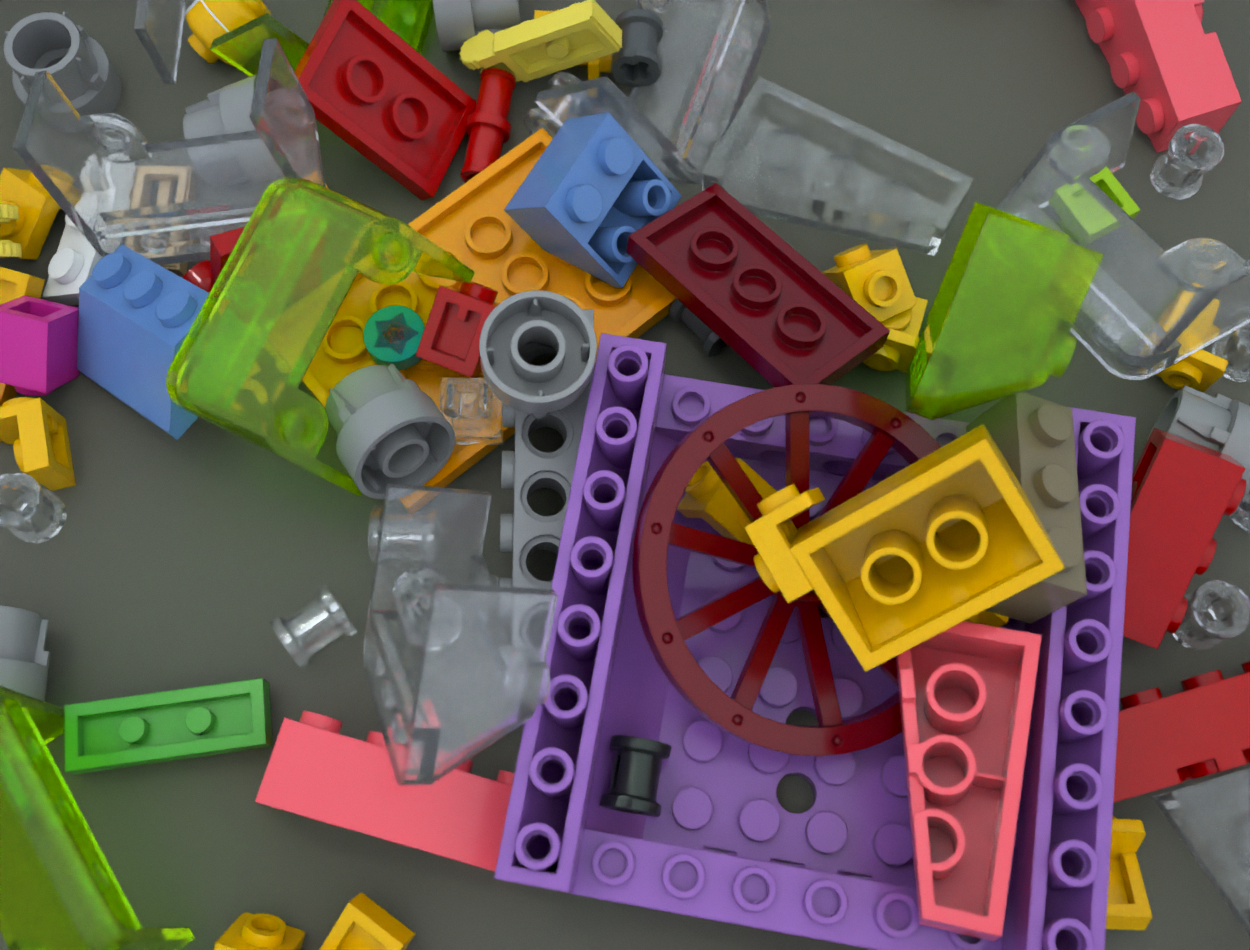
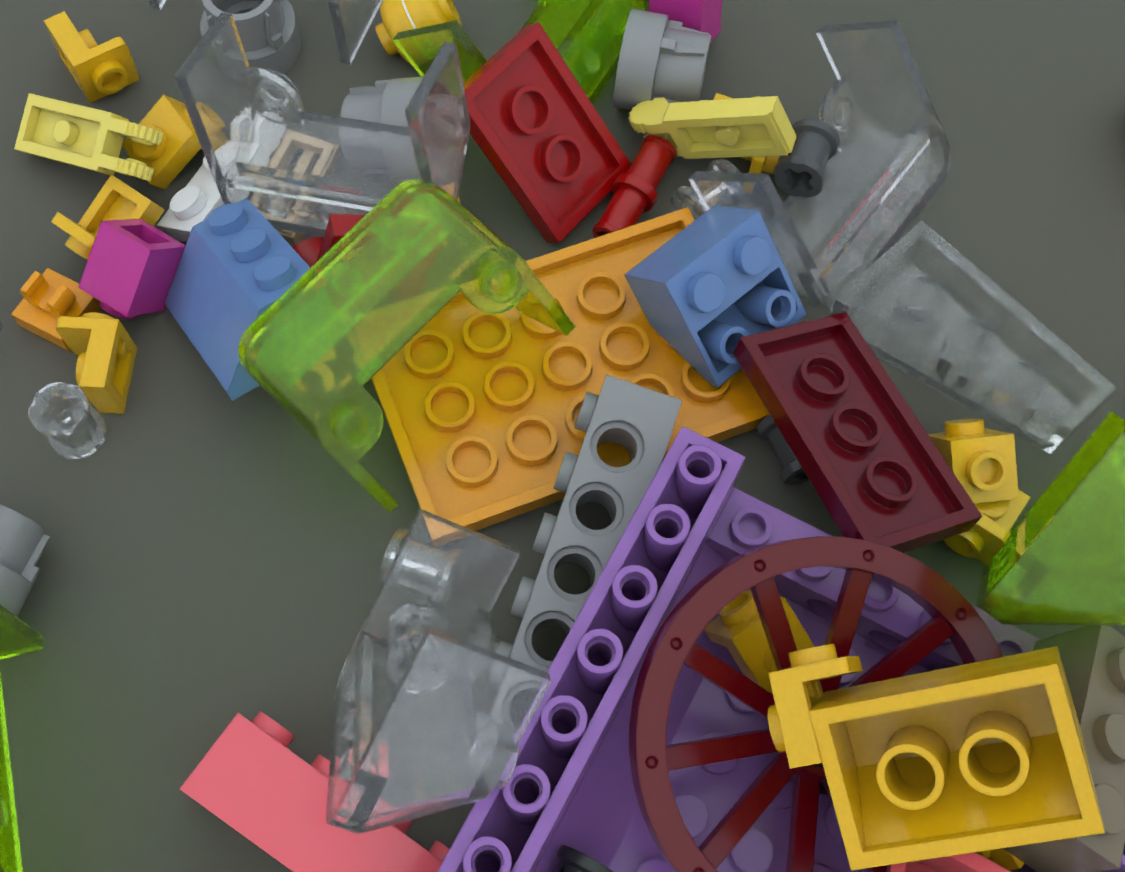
camera: 15 degrees right, 5 degrees down
(167, 726) = (126, 681): bright green plate -> none
(313, 627) = (300, 629): clear bush -> none
(387, 430) = (438, 456): light grey piece -> none
(394, 336) = (477, 367): tile -> none
(456, 326) = (545, 377): red bracket -> none
(472, 411) = (527, 463): clear tile -> none
(543, 319) = (621, 391): light grey piece -> none

